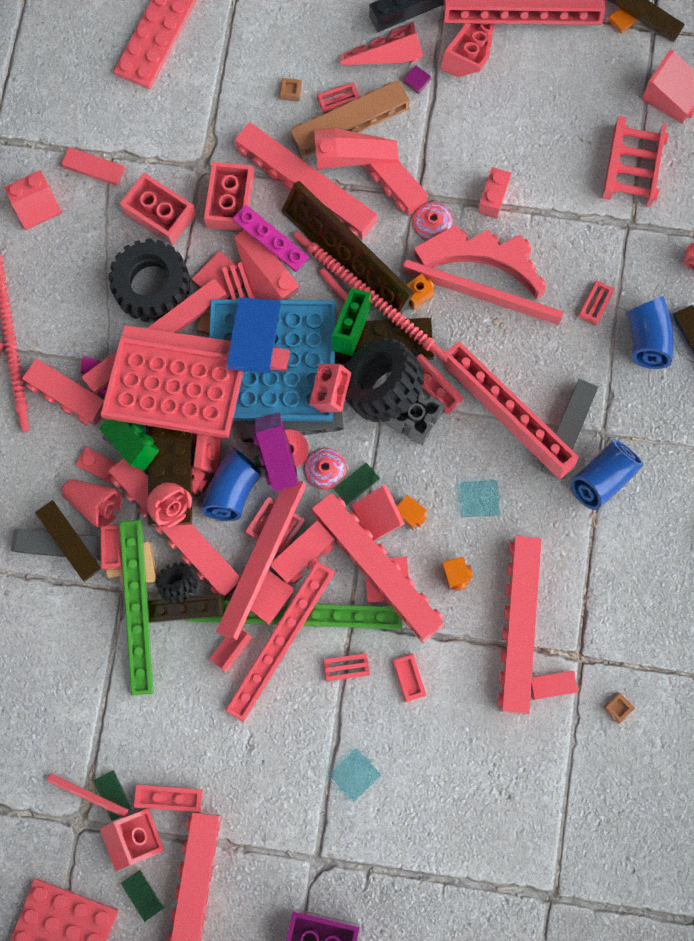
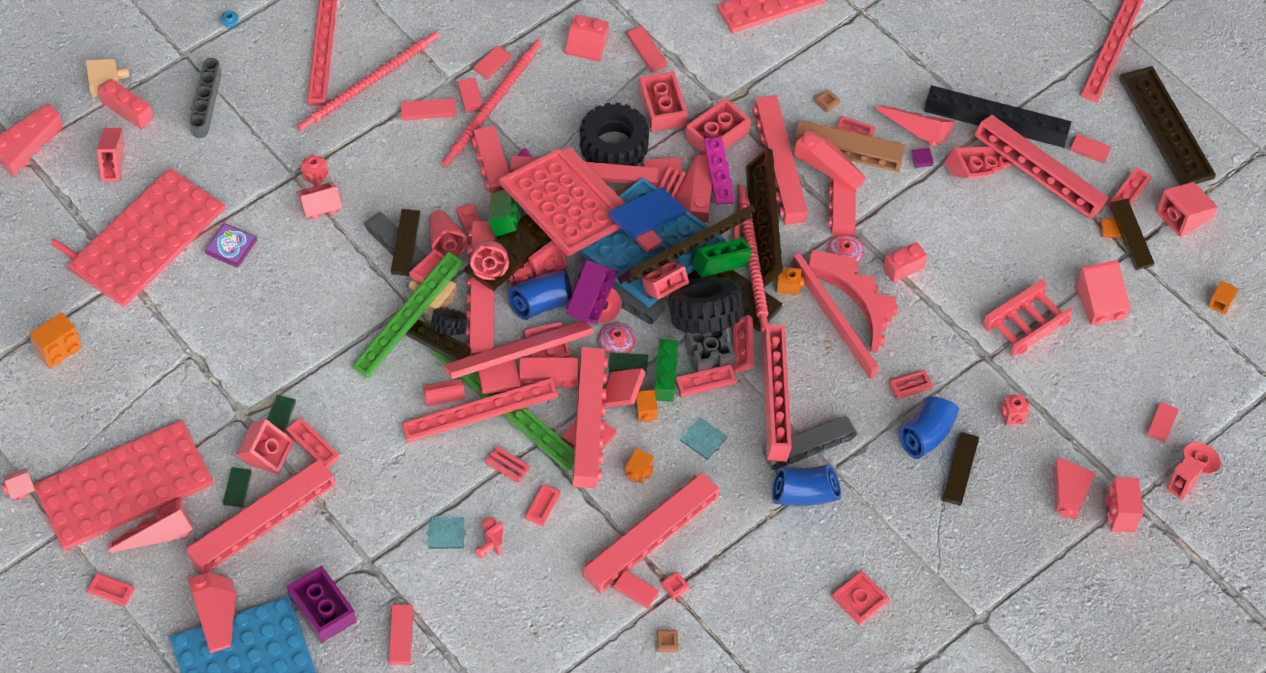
camera: 35 degrees right, 20 degrees down
(87, 795) = (264, 398): coral bar -> none
(316, 337) = (686, 245): none -> dark brown plate
(396, 465) = (666, 370): none -> green brick
(401, 746) = (493, 537): none -> coral piece
(407, 901) = (401, 635): none -> coral tile
(435, 445) = (705, 380): none -> coral plate
(579, 653) = (675, 585): none -> coral tile

